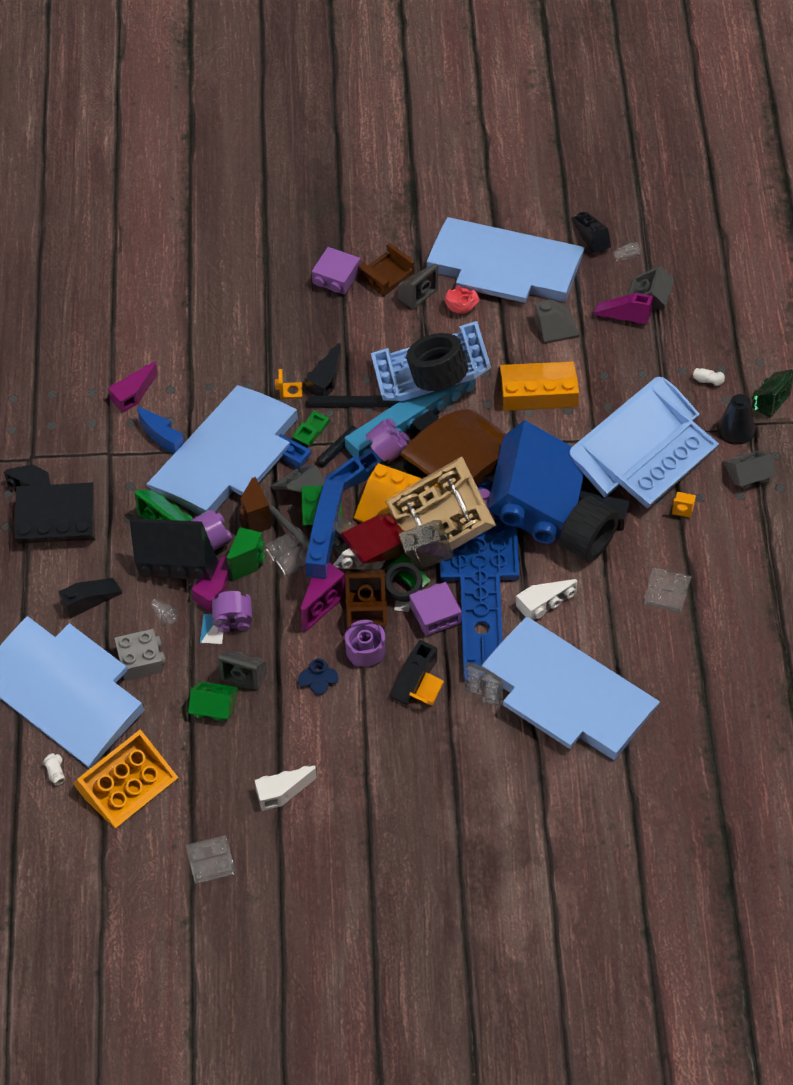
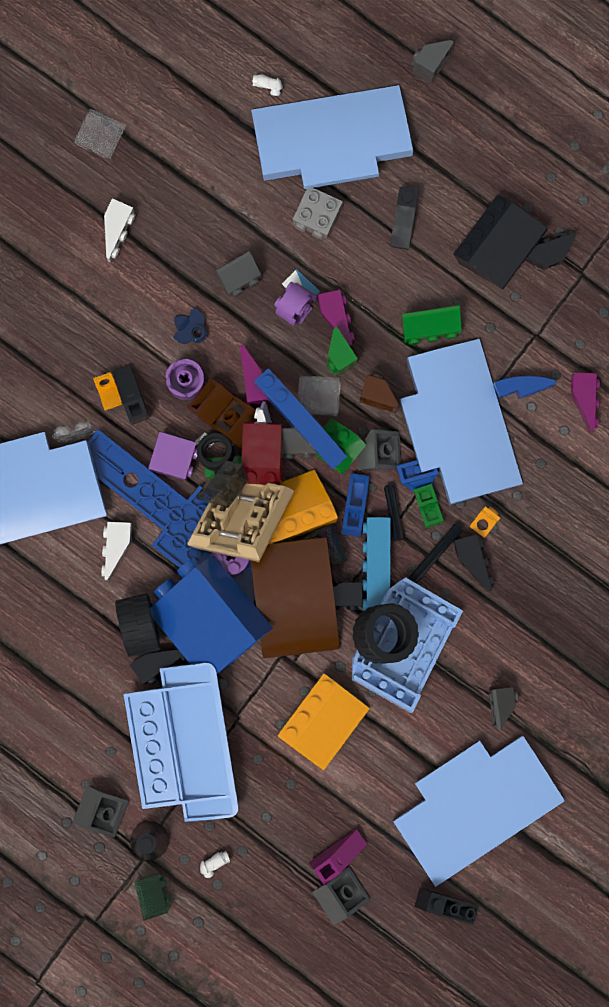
camera: 125 degrees right, 30 degrees up
(125, 779) = (216, 124): light orange slope -> none
(165, 612) = (342, 260): clear cone -> none
(172, 549) = (377, 293): black slope -> none
(212, 700) = (232, 235): green slope -> none
(215, 530) = (383, 344): medium lavender brick -> none
(289, 526) = (338, 408): dark grey bar -> none
(335, 270) = (575, 653): medium lavender brick -> none
(387, 270) = (544, 700): reddish brown panel -> none
(387, 440) = (349, 539): medium lavender brick -> none
(461, 300) = (459, 732): coral hair -> none
(554, 321) = (373, 790): dark grey slope -> none
(628, 251) = (398, 916): clear cone -> none
(667, 590) = (47, 647): clear slope -> none
(683, 504) = (111, 729): light orange bracket -> none

